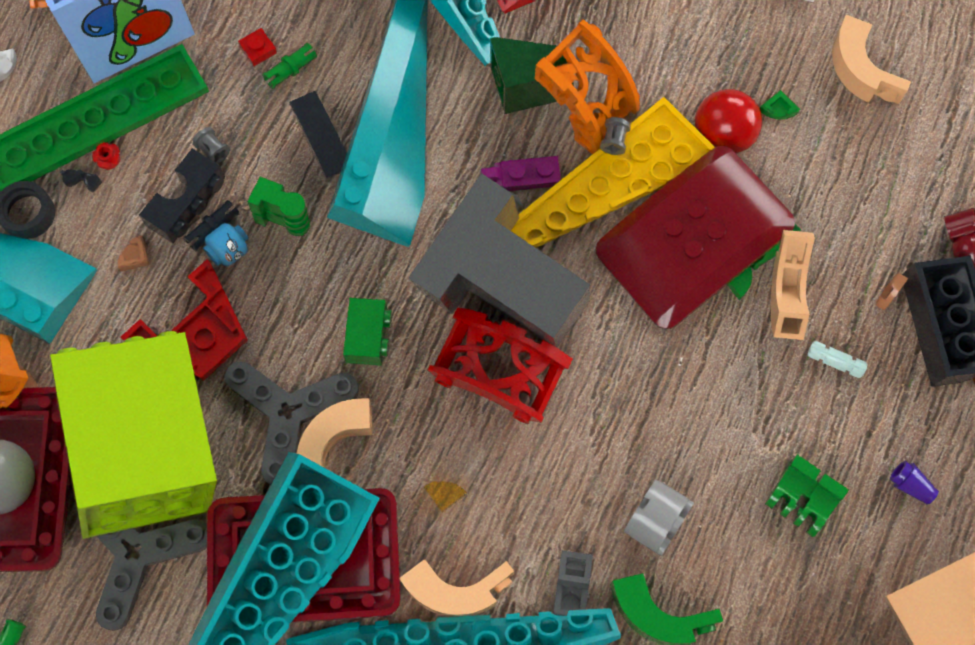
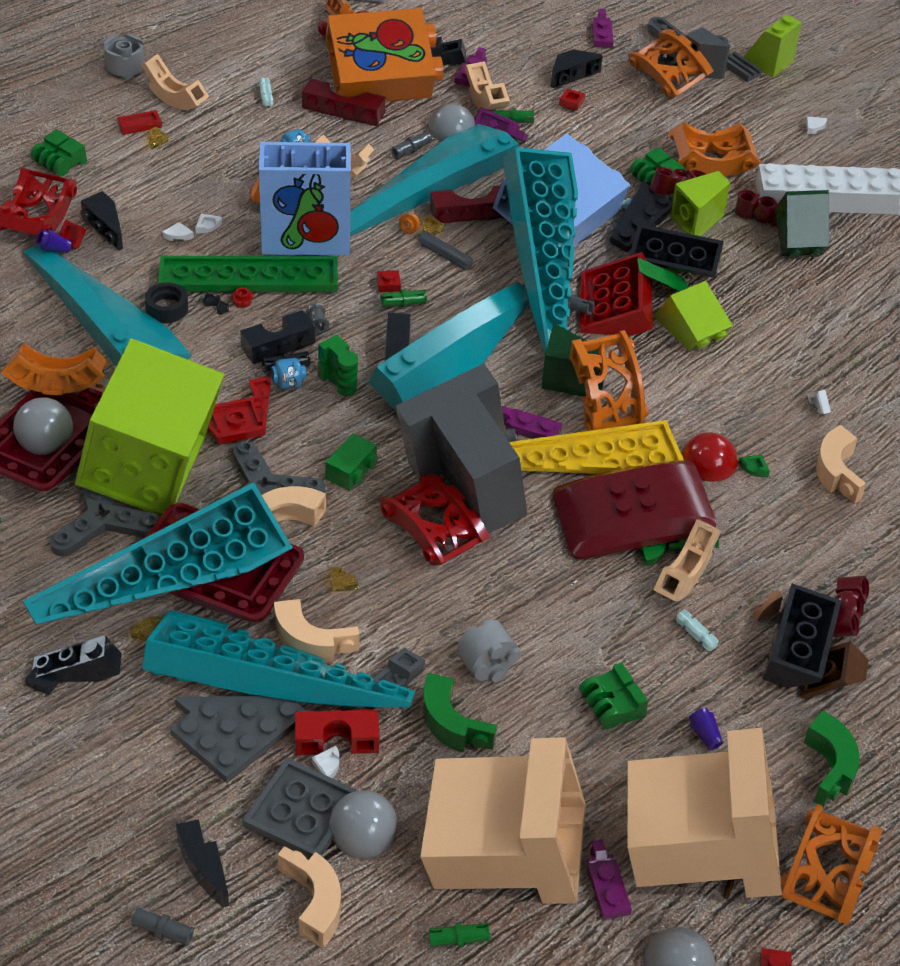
camera: 25 degrees right, 25 degrees down
(134, 255) = (221, 358): nougat tile -> none
(615, 136) = (607, 426): dark grey bush -> none

